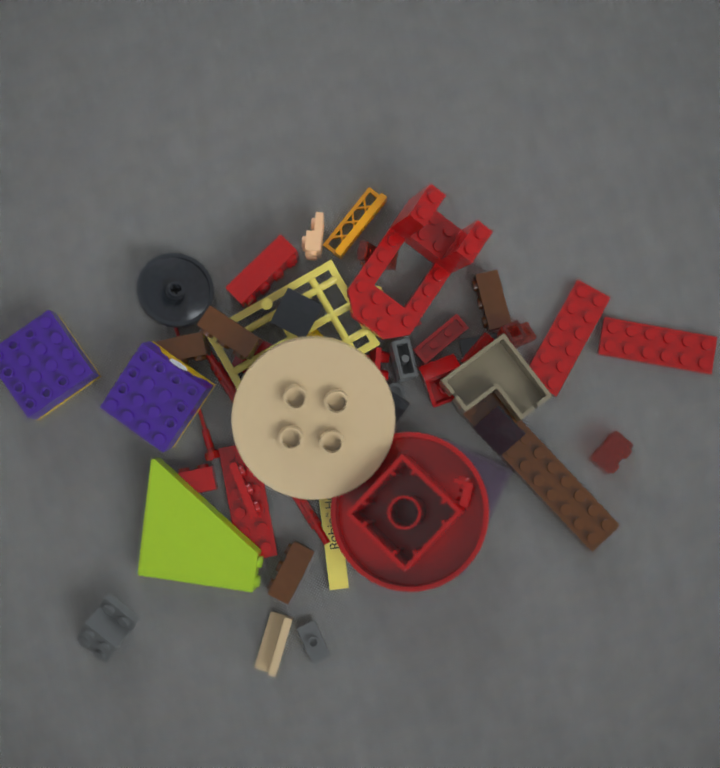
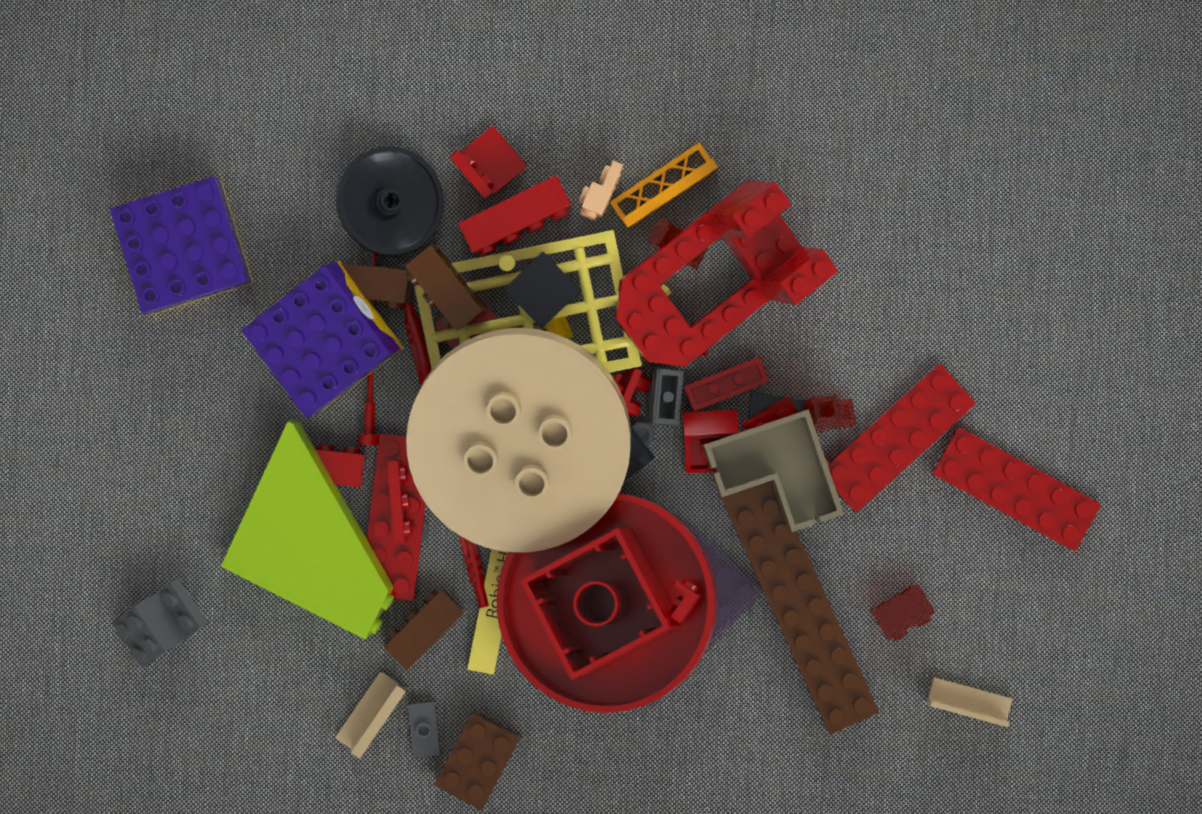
camera: 25 degrees right, 5 degrees up
(233, 245) = (489, 163): none -> red bracket
(357, 651) = (477, 760): none -> reddish brown brick
(491, 300) = (812, 354): reddish brown brick -> none
(499, 430) = (760, 535): black piece -> none
(676, 498) = (969, 701): none -> tan panel

